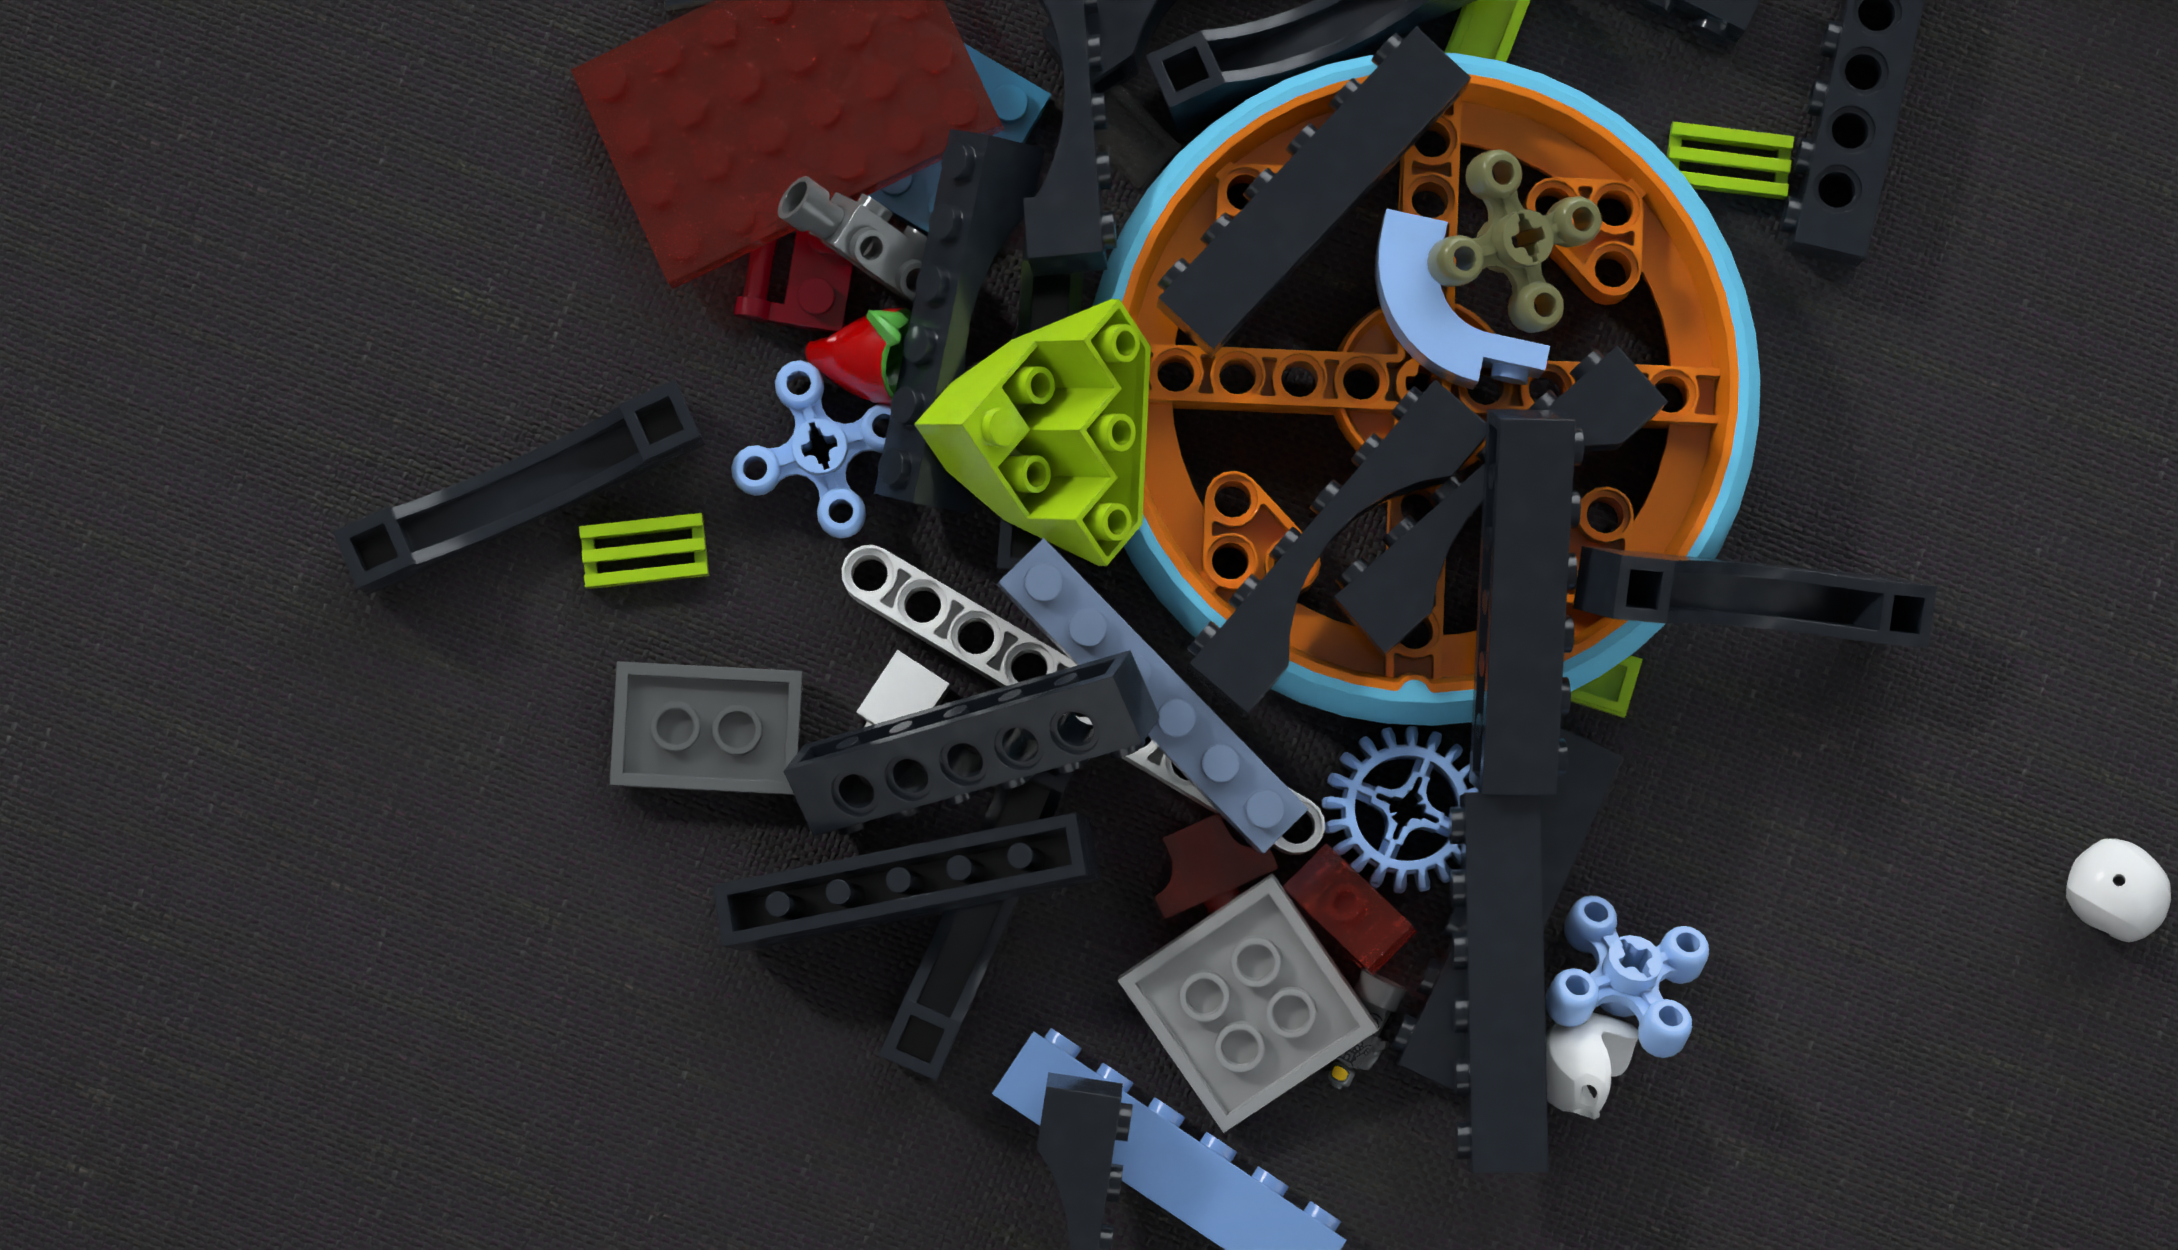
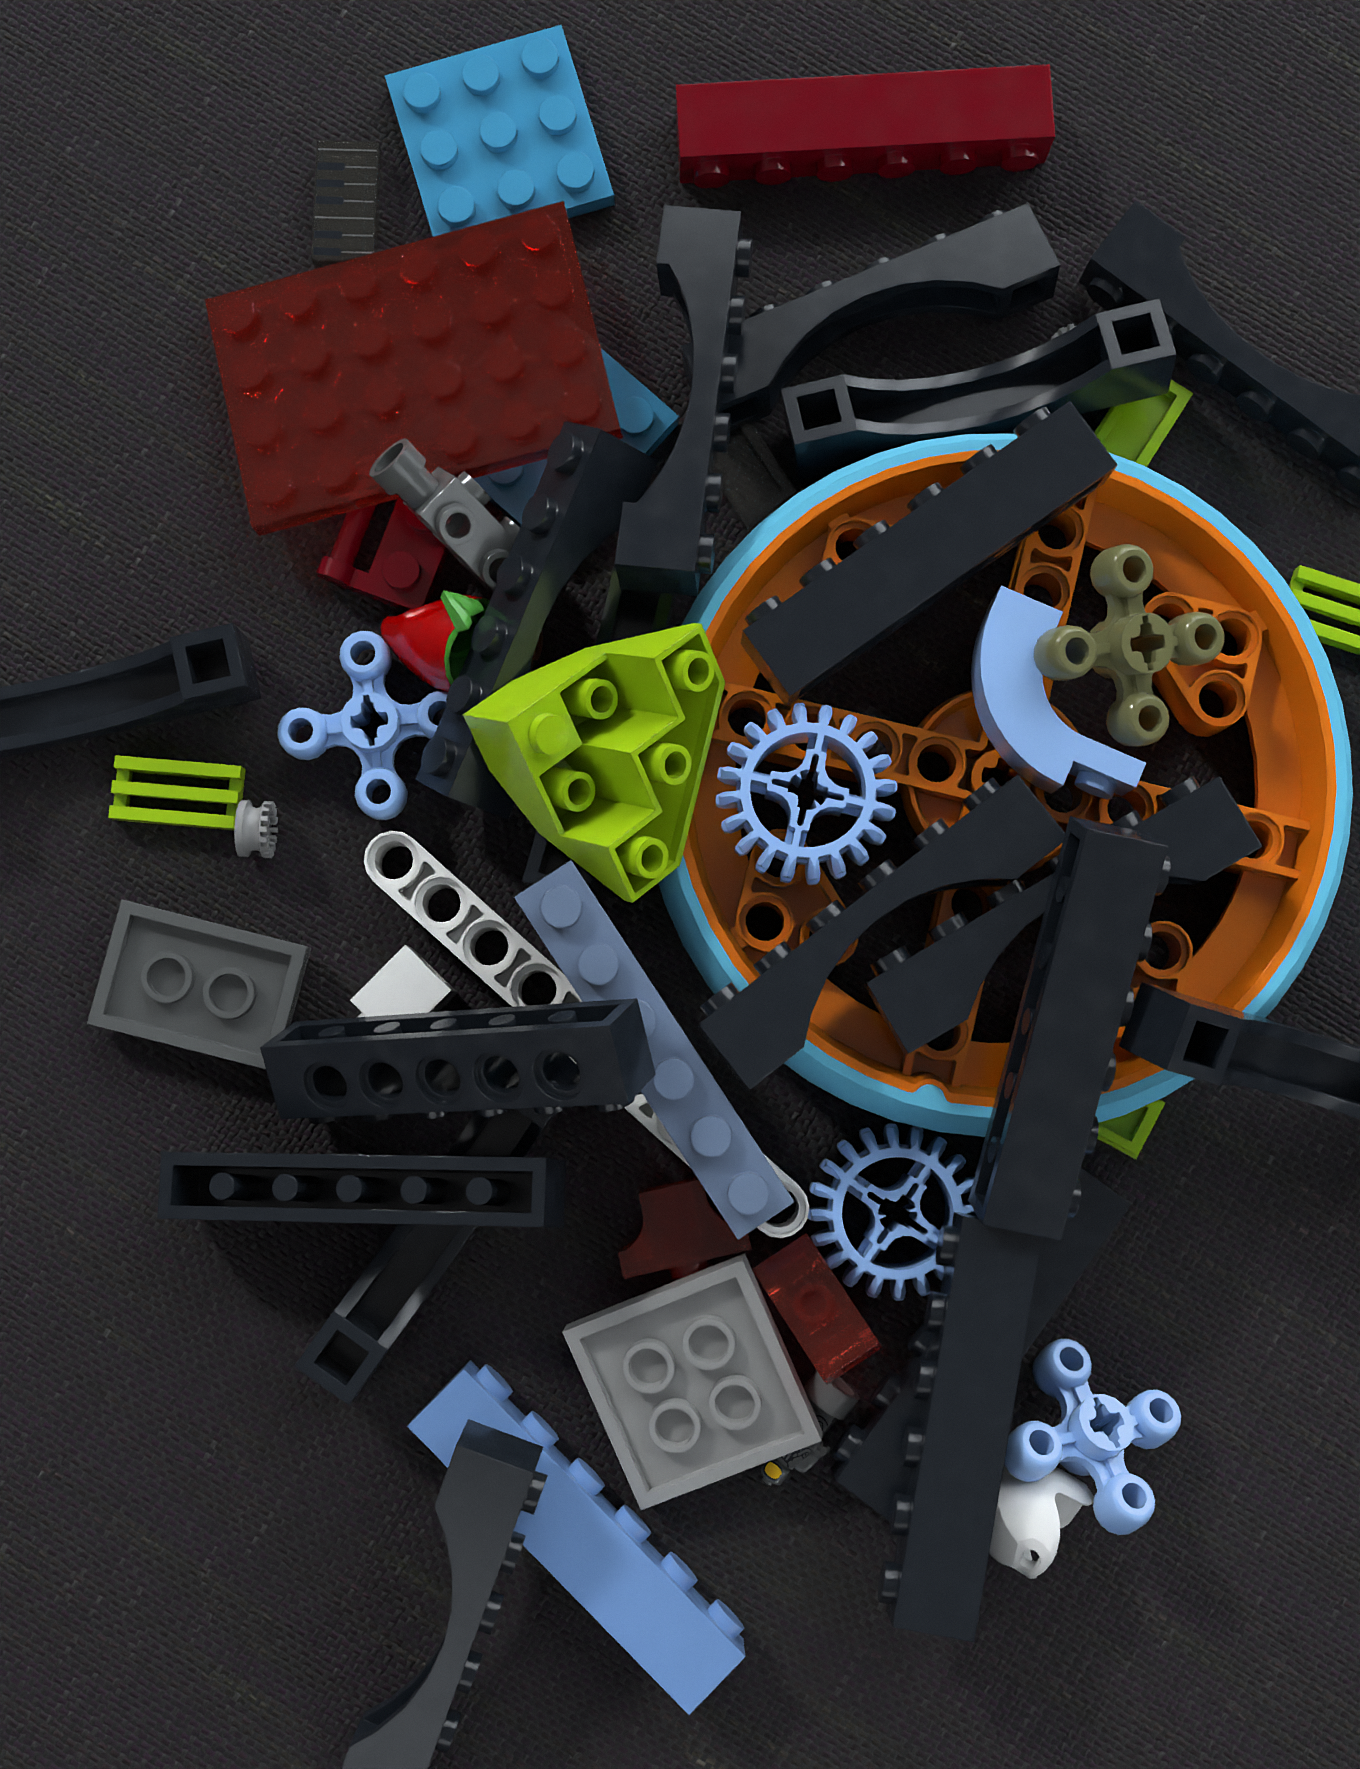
camera: 15 degrees right, 0 degrees up
(727, 570) = (254, 829): none -> light grey bush
(1274, 435) = (775, 788): none -> light blue gear

